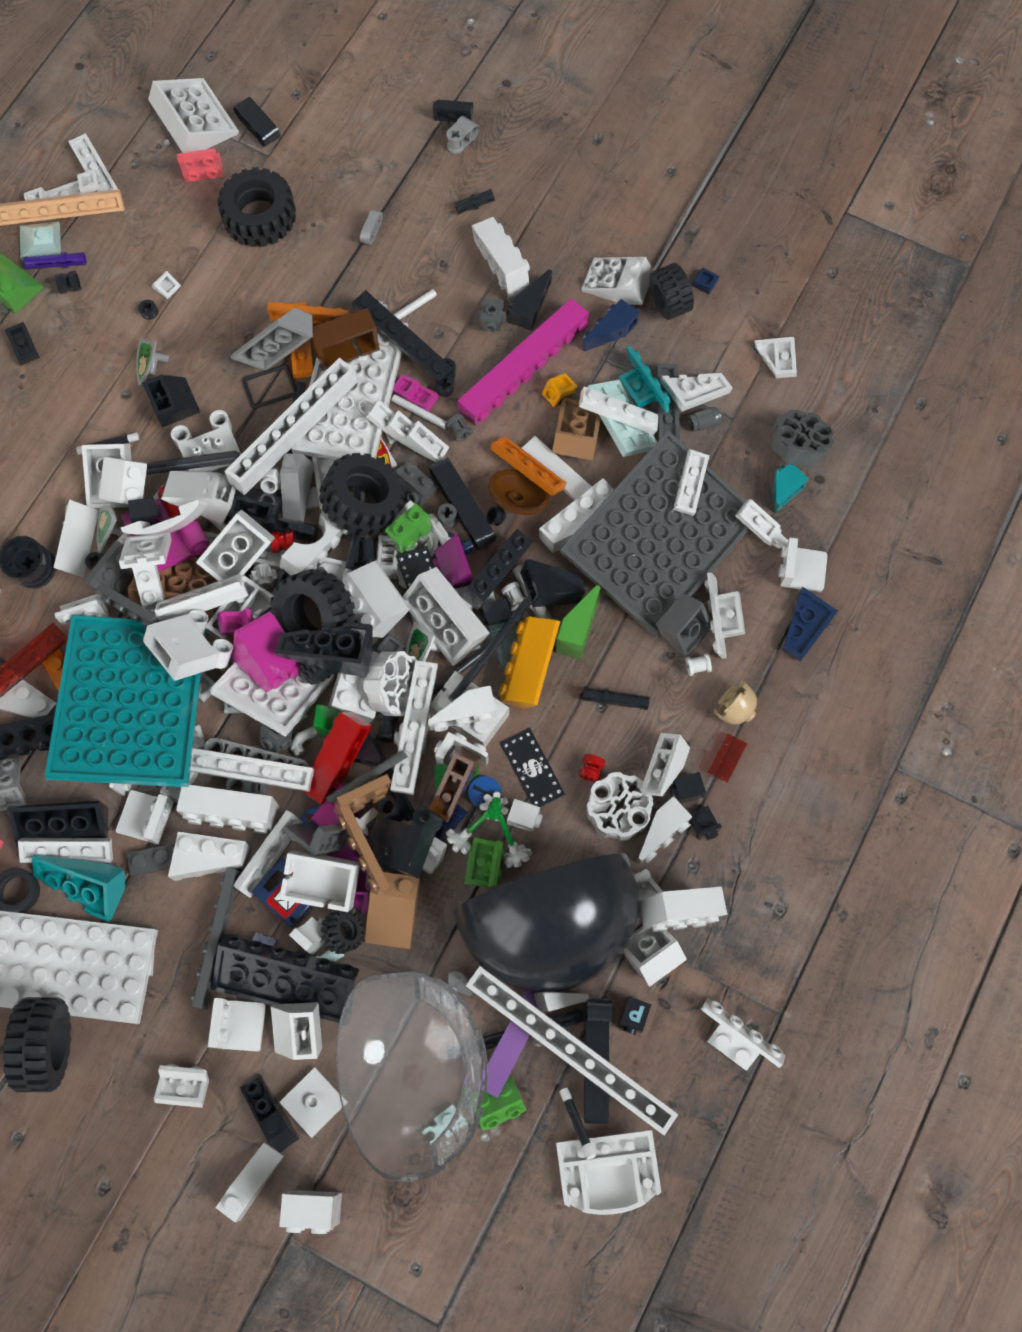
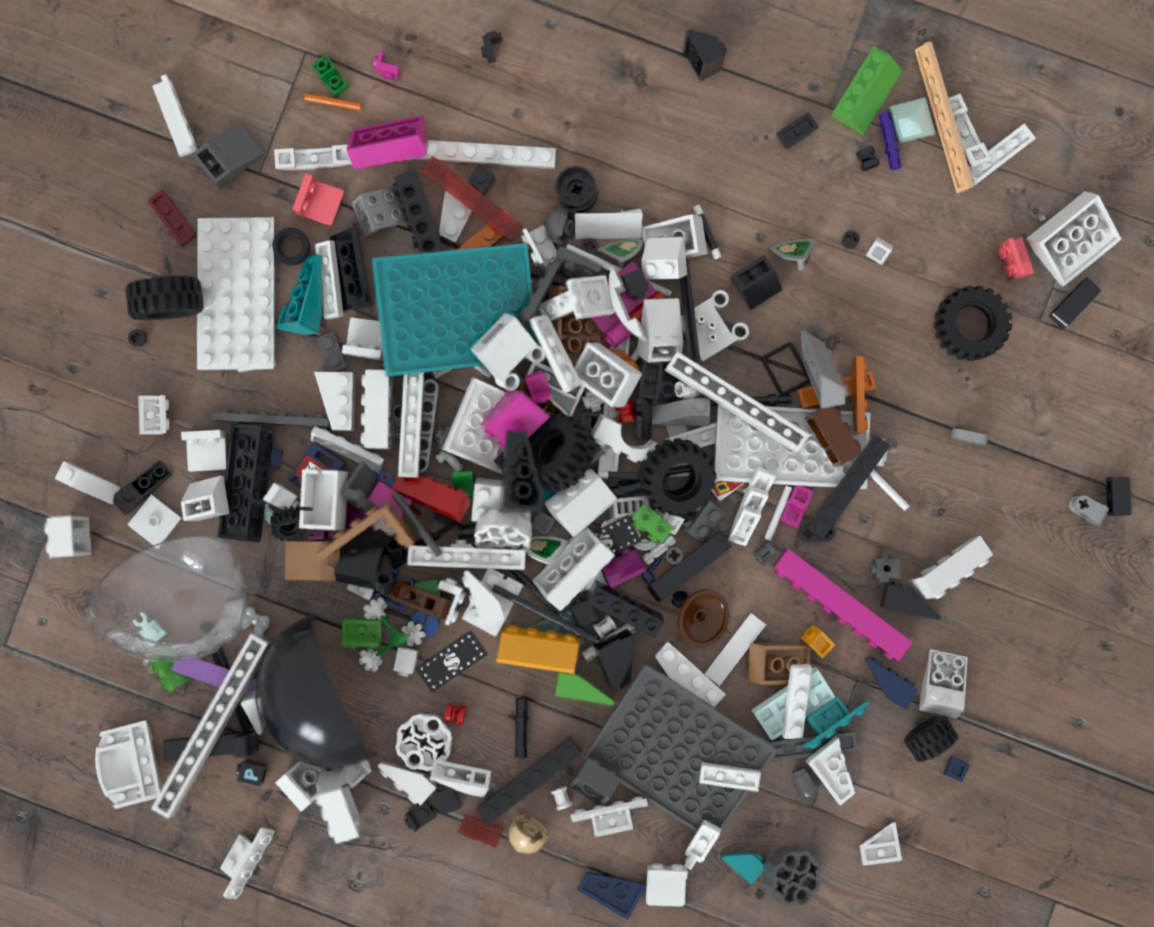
camera: 80 degrees right, 15 degrees up
(62, 586) = (560, 225): none -> dark grey cylinder
(77, 1101) = (134, 333): none -> black bush
(474, 201) = (1012, 533): black pin -> none
(528, 465) = (733, 622): orange plate -> none
(577, 1123) = (162, 735): black bar -> none
(675, 695) = (529, 780): none -> black brick

